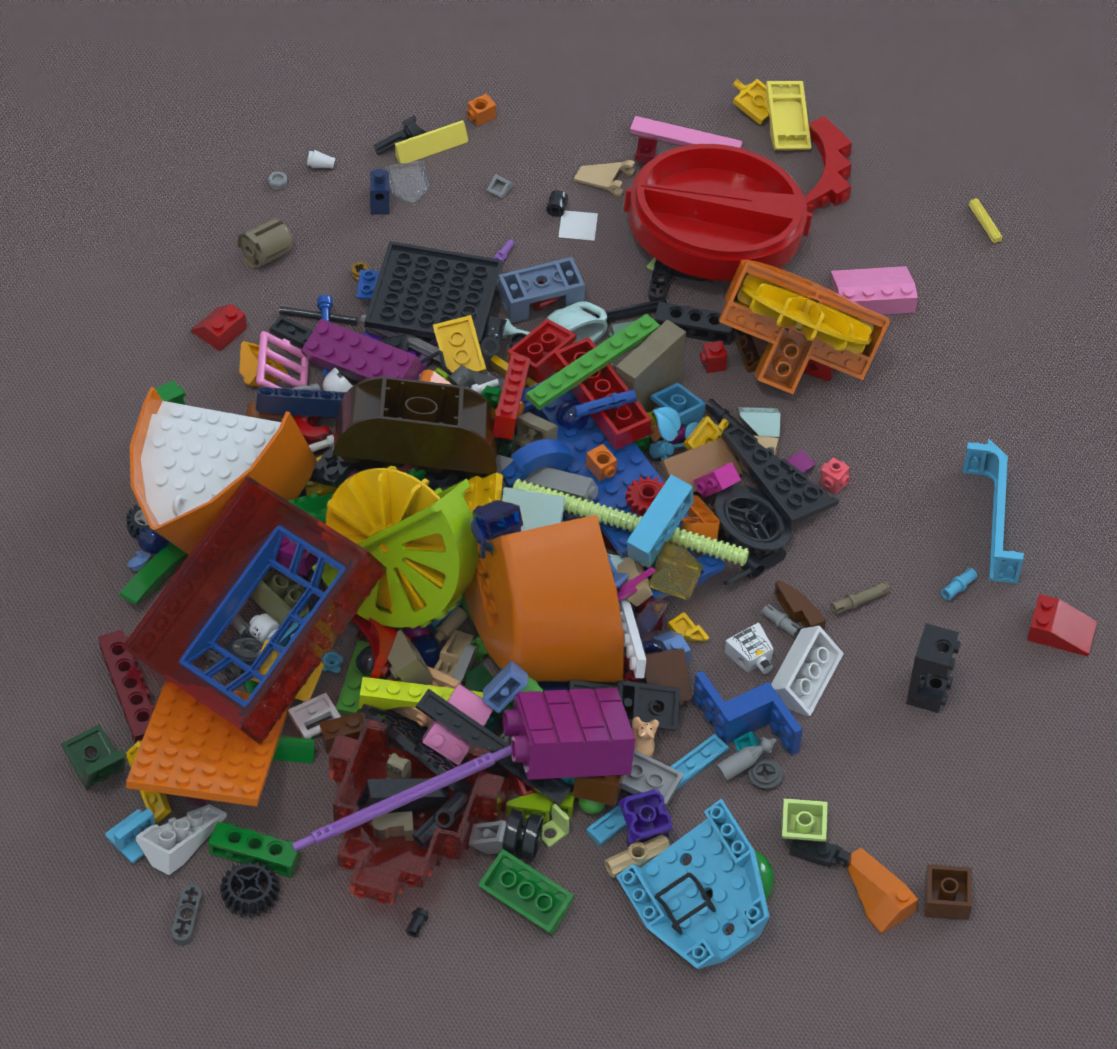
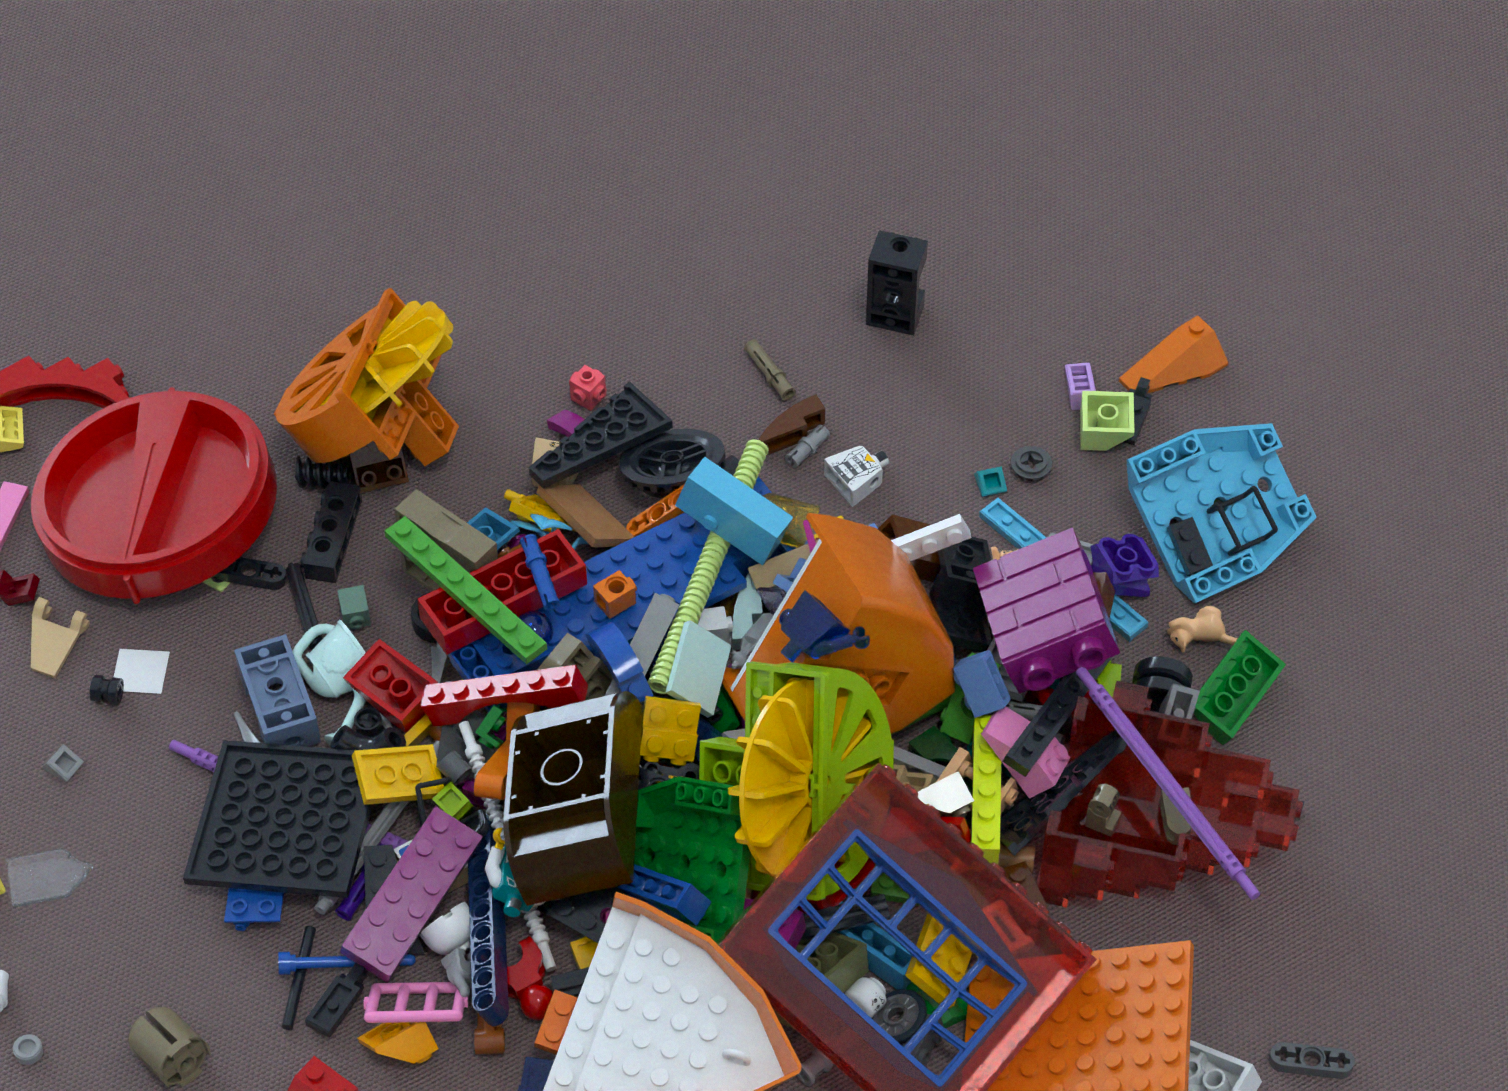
camera: 90 degrees left, 0 degrees up
(225, 833) = (1221, 948): green brick -> none
(251, 896) = (1259, 973): black gear -> none
(321, 487) = (667, 894): none -> blue brick
(332, 657) = (911, 928): medium azure plate -> none
(357, 267) = (219, 936): pearl gold bush -> none
(379, 184) = (73, 904): dark blue torso -> none
(380, 789) = (1140, 804): black slope -> none
(450, 811) = (1172, 758): black piece -> none
(559, 823) = (1128, 660): yellowish green bracket -> none
(590, 879) = (1204, 627): none -> light nougat animal
(642, 494) = (668, 545): red gear -> none
(648, 850) = (1170, 589): tan piece -> none
(664, 867) = (1189, 546): none -> black plate
(714, 357) = (388, 501): red brick -> none
(717, 480) = (616, 491): dark pink brick -> none
(721, 413) = (496, 496): black pin -> none
(744, 759) = (1019, 479): light grey wheel -> none
(747, 713) = (958, 468): blue bracket -> none
(762, 420) = (496, 458): light aqua slope -> none
(807, 670) = (882, 422): white slope -> none
(838, 820) = (1079, 383): none -> lavender slope
(878, 289) = (275, 343): bright pink slope -> none
(948, 892) = (1177, 293): reddish brown brick -> none
(959, 584) = (744, 277): medium azure pin -> none
(985, 220) = (164, 234): light yellow axle -> none
(992, 462) = (642, 230): medium azure panel -> none
(1061, 626) = (799, 191): red slope -> none

